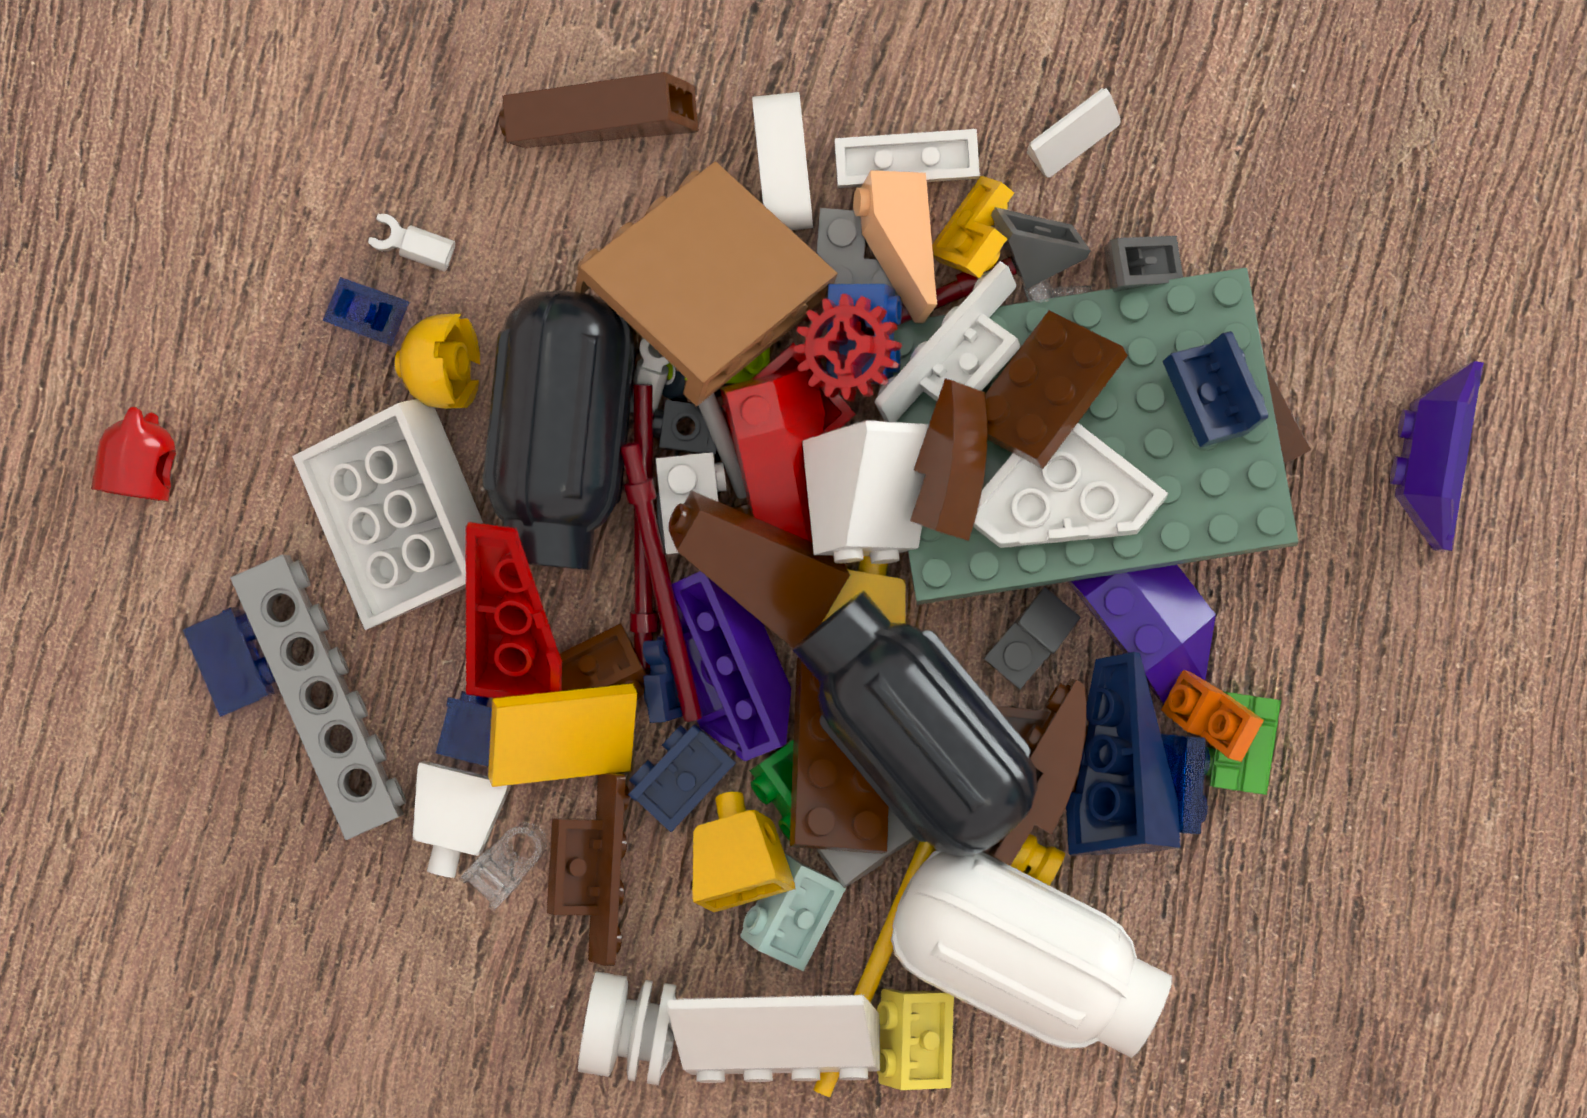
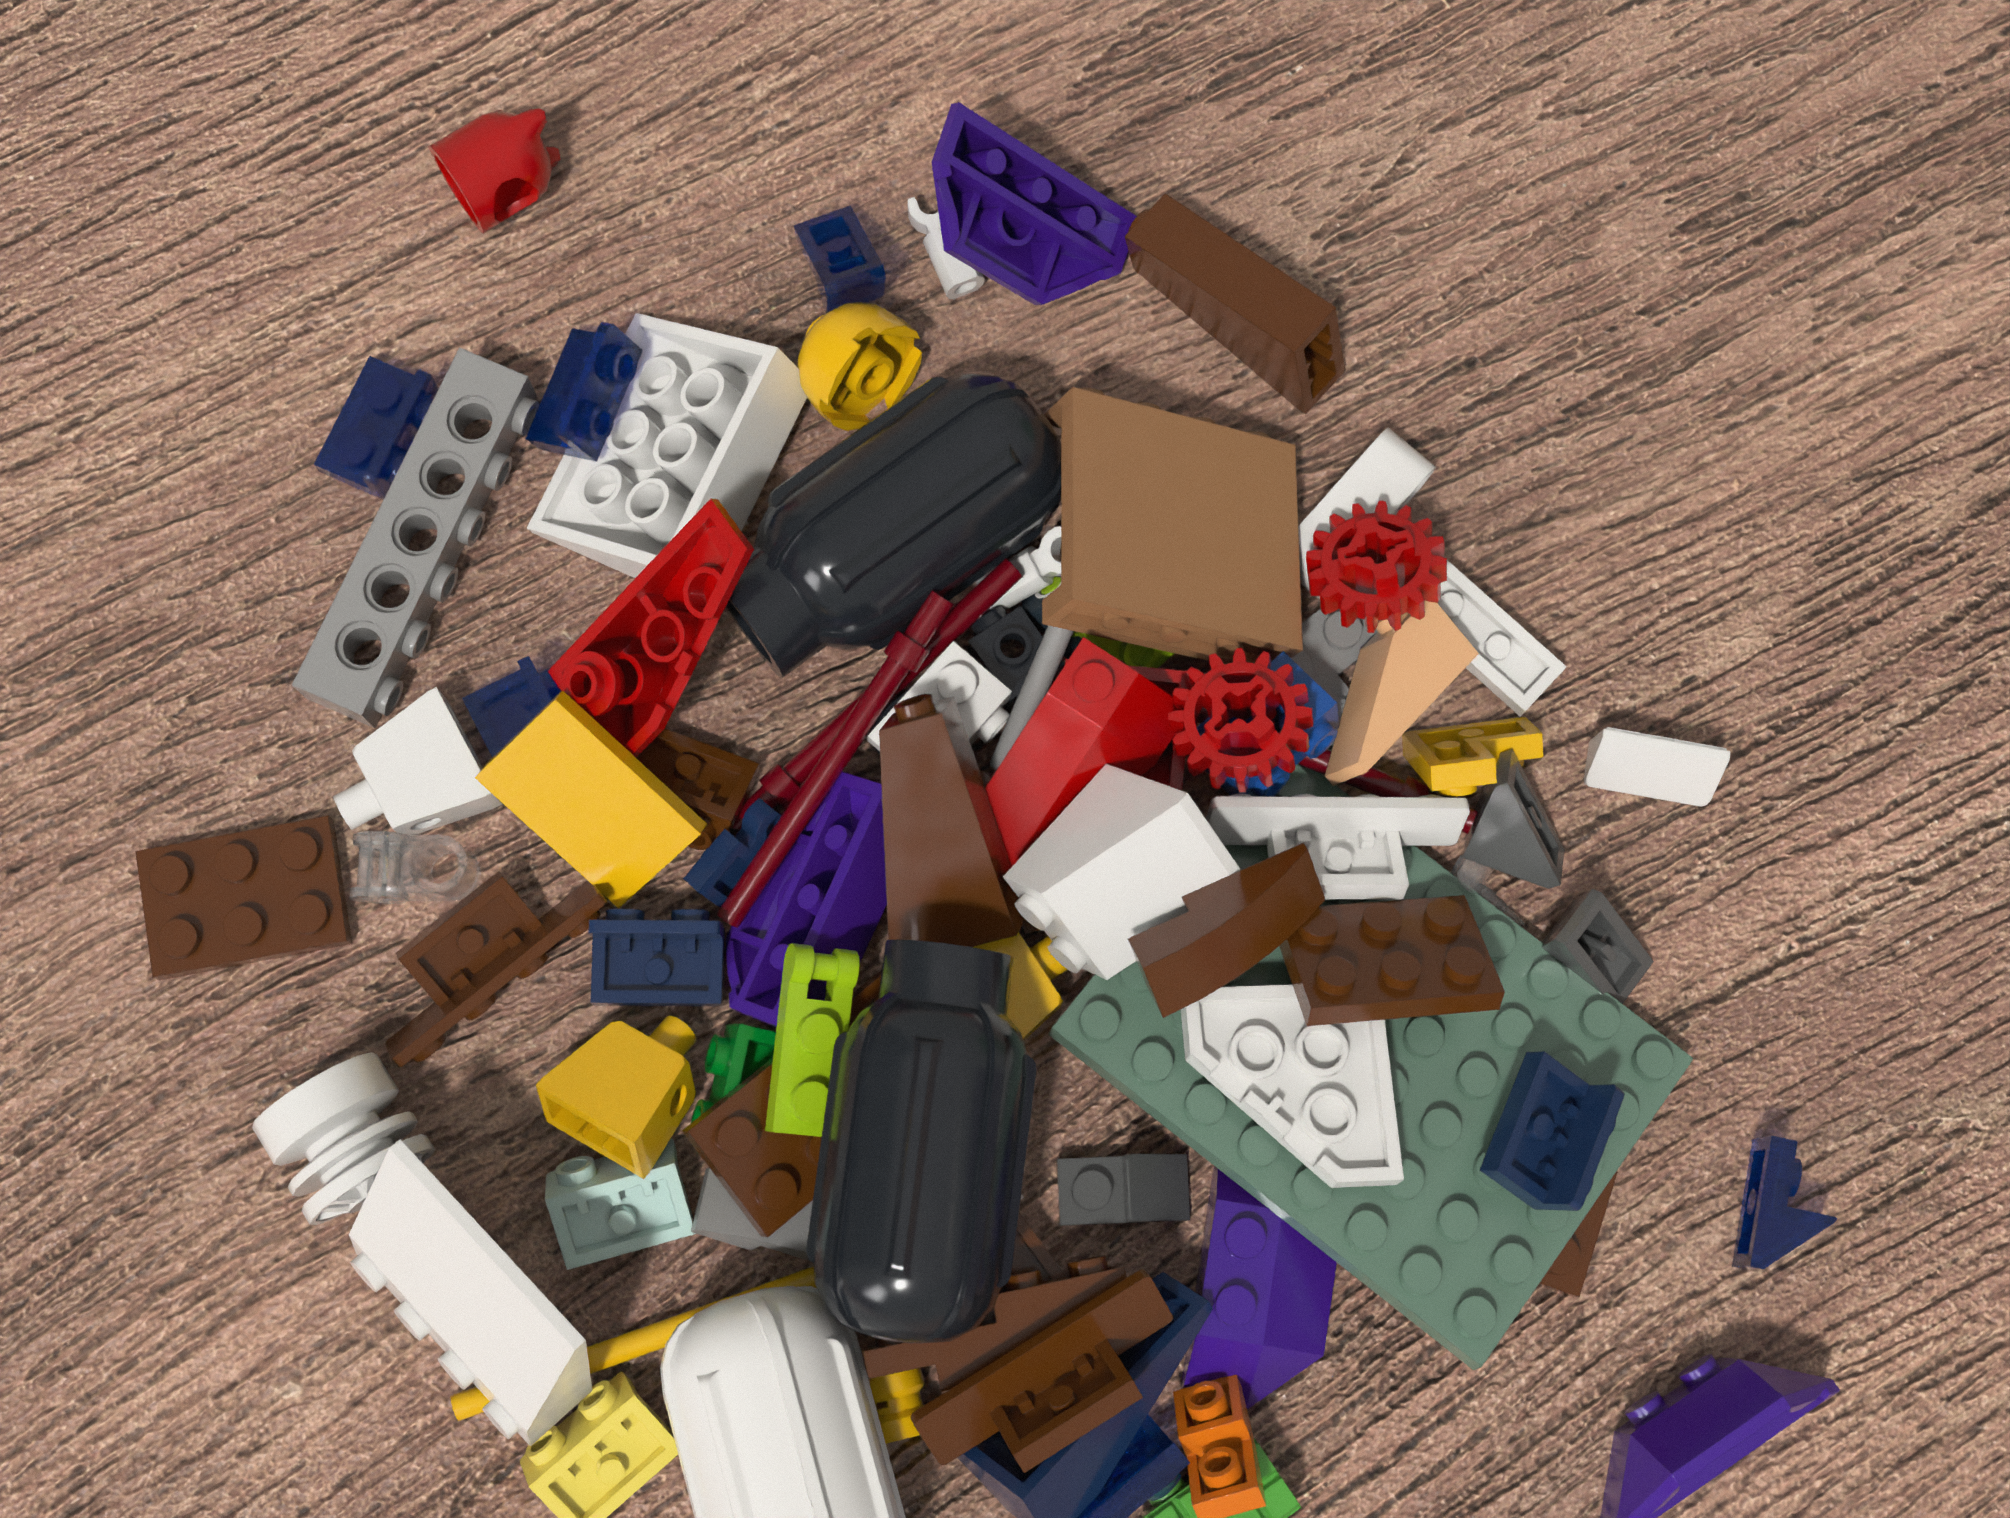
camera: 40 degrees right, 10 degrees down
(317, 528) = (585, 392): none -> clear blue bracket
(437, 968) = (243, 897): none -> reddish brown plate
(445, 190) = (1021, 213): none -> dark purple wedge
(502, 667) = (606, 682): none -> red plate
(803, 736) = (807, 1037): none -> lime plate
(832, 165) = (1376, 566): none -> red gear
(1102, 773) = (1052, 1383): none -> reddish brown bracket
(1367, 314) = (1766, 1223): none -> clear blue slope

